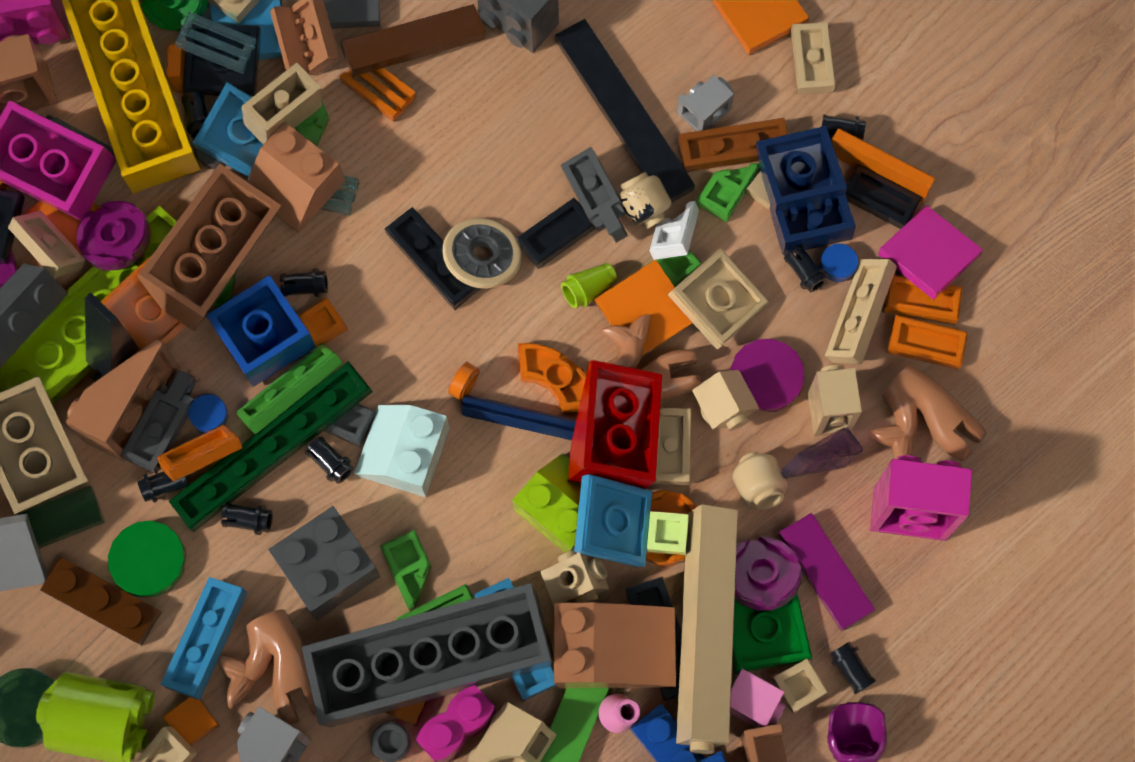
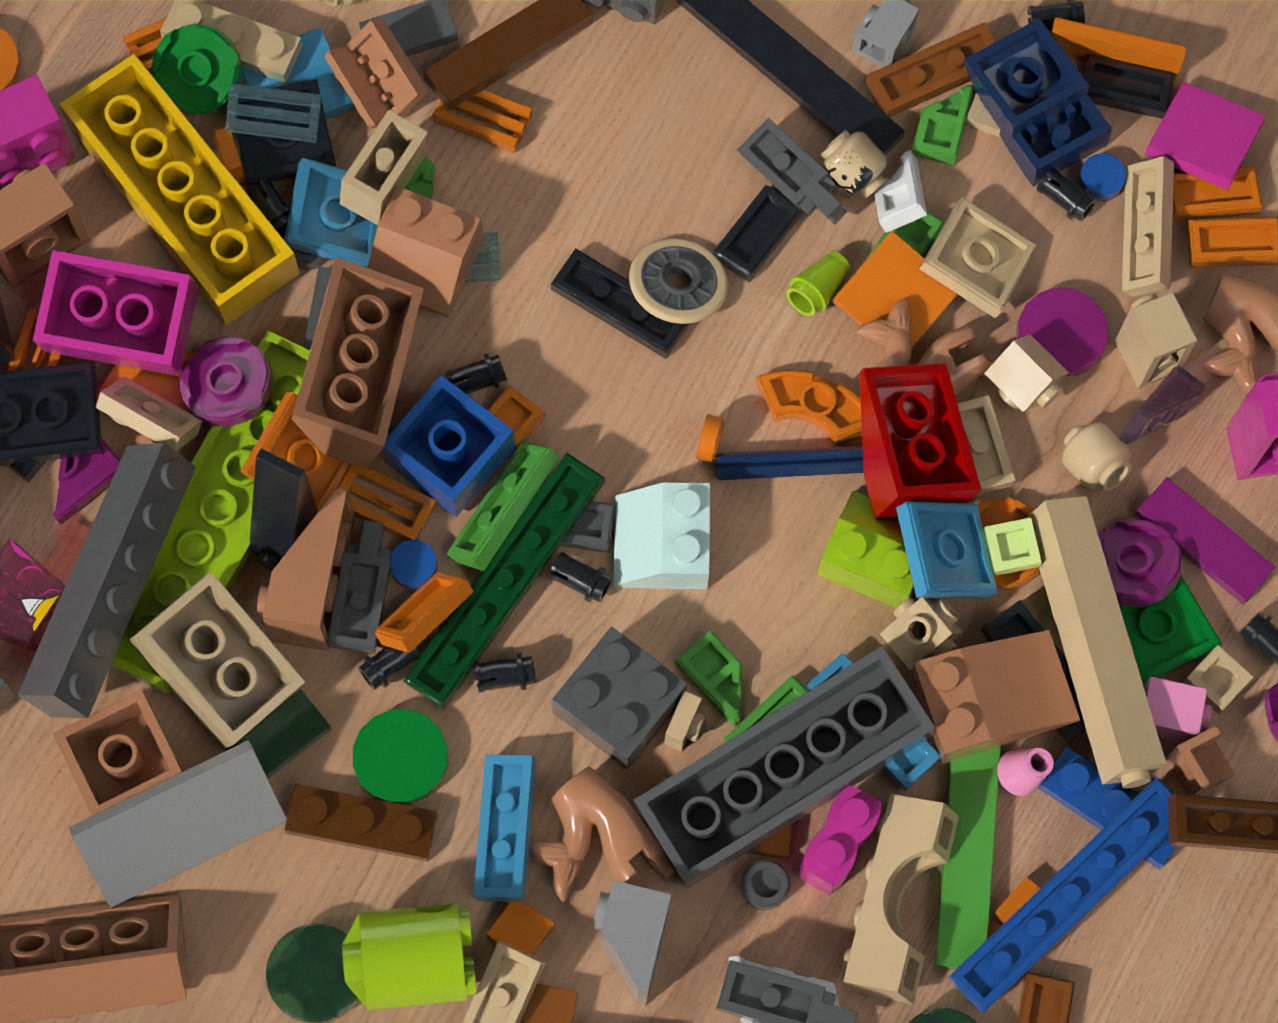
camera: 20 degrees left, 0 degrees up
(224, 381) = (396, 488): none -> orange tile
(369, 596) = (685, 722): none -> tan plate

